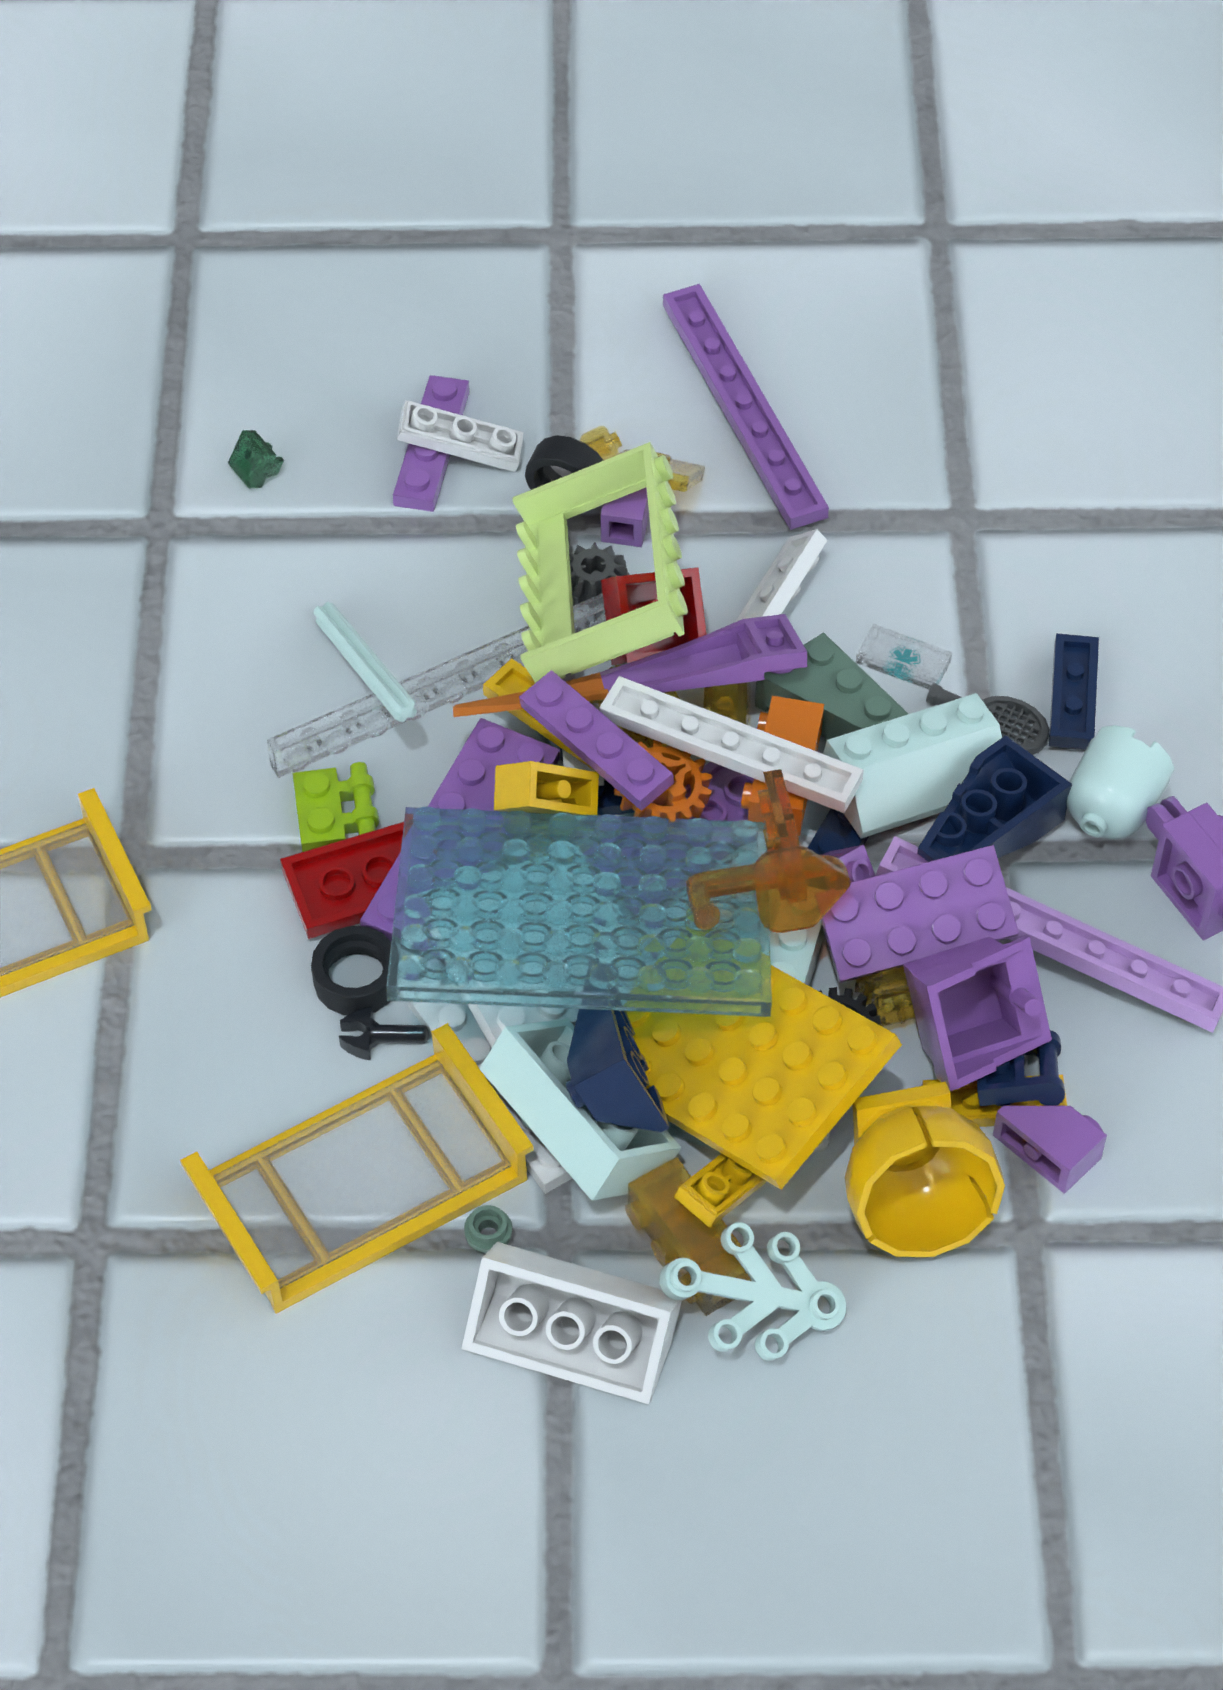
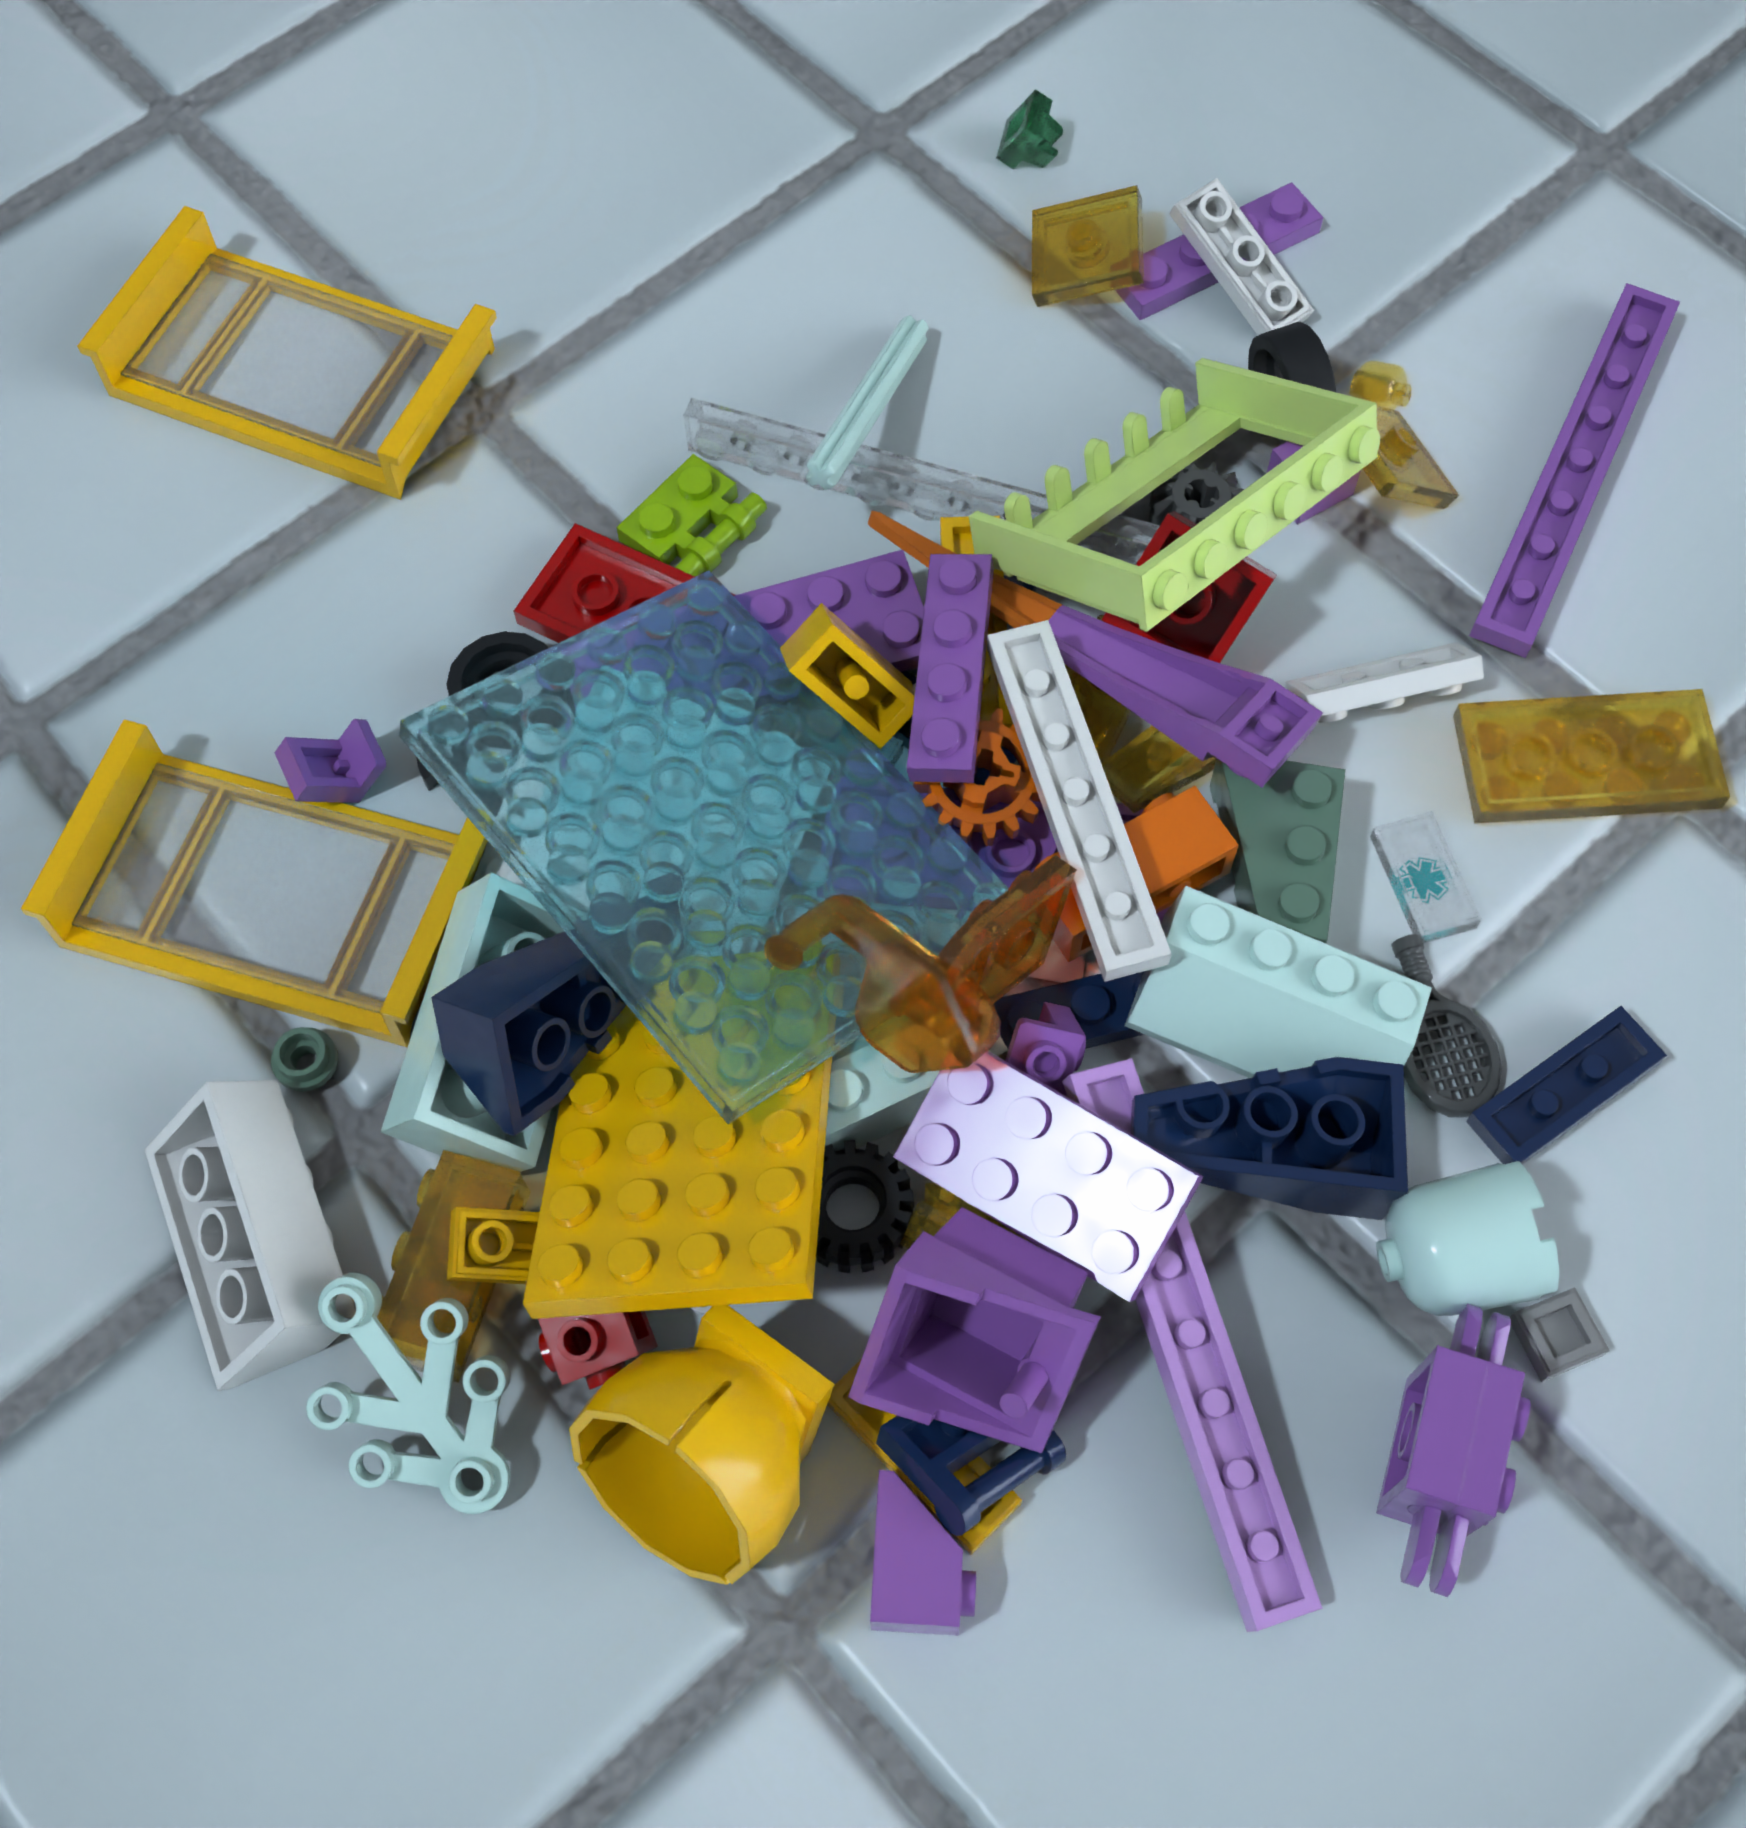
camera: 50 degrees right, 10 degrees up
(316, 1084) = (330, 767): none -> medium lavender bracket
(367, 493) = (1087, 246): none -> clear yellow plate
(814, 1183) = (593, 1344): none -> red brick
(910, 537) = (1590, 756): none -> clear yellow plate
(1190, 790) = (1558, 1334): none -> light grey tile

